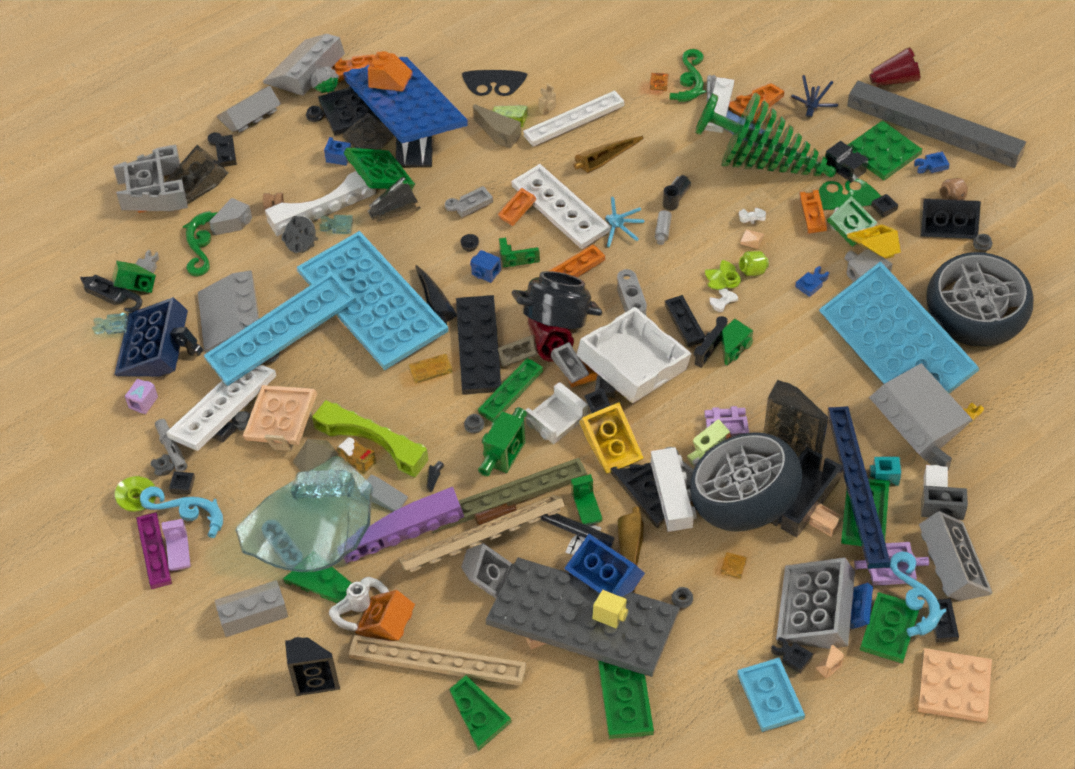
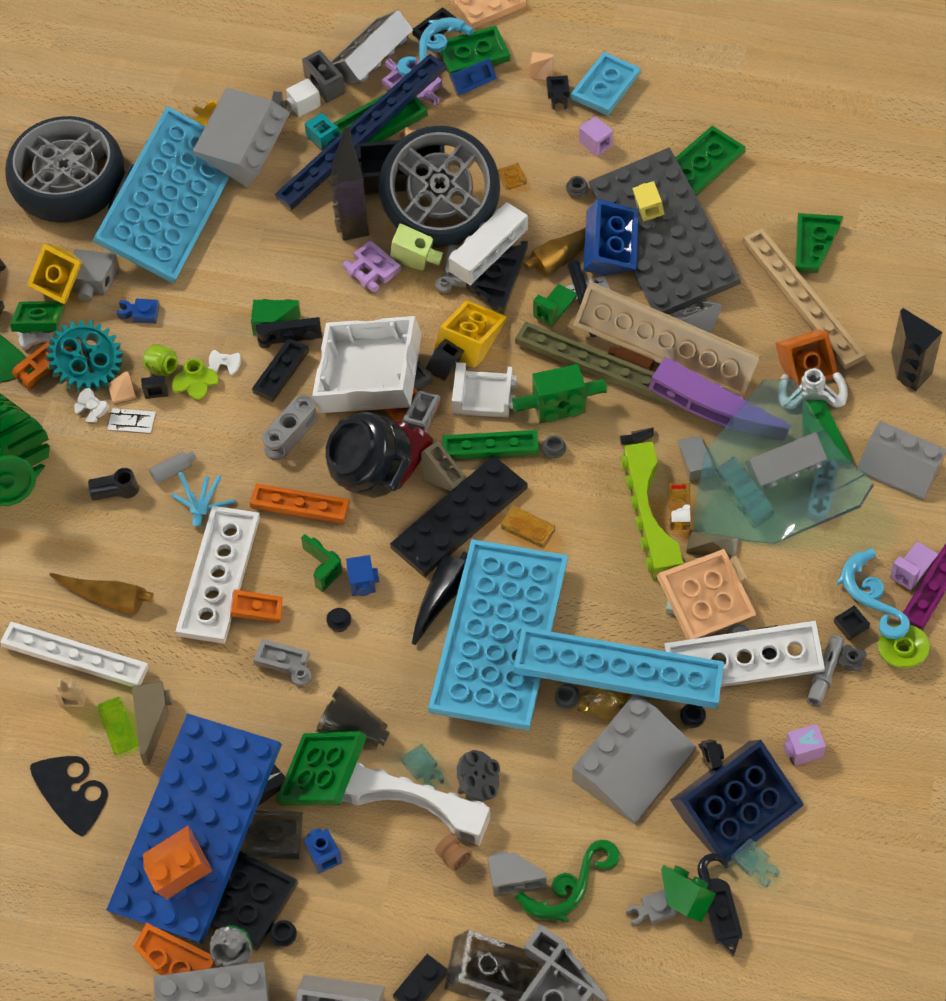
camera: 130 degrees left, 5 degrees up
(315, 521) = (786, 461): none -> light grey brick
(719, 643) = (595, 136): none -> lavender brick
(723, 232) = (131, 420): none -> white sticker
(734, 250) = (154, 387): none -> black plate
(797, 221) = (64, 361): none -> teal gear
(817, 603) = (498, 101): light grey slope -> none

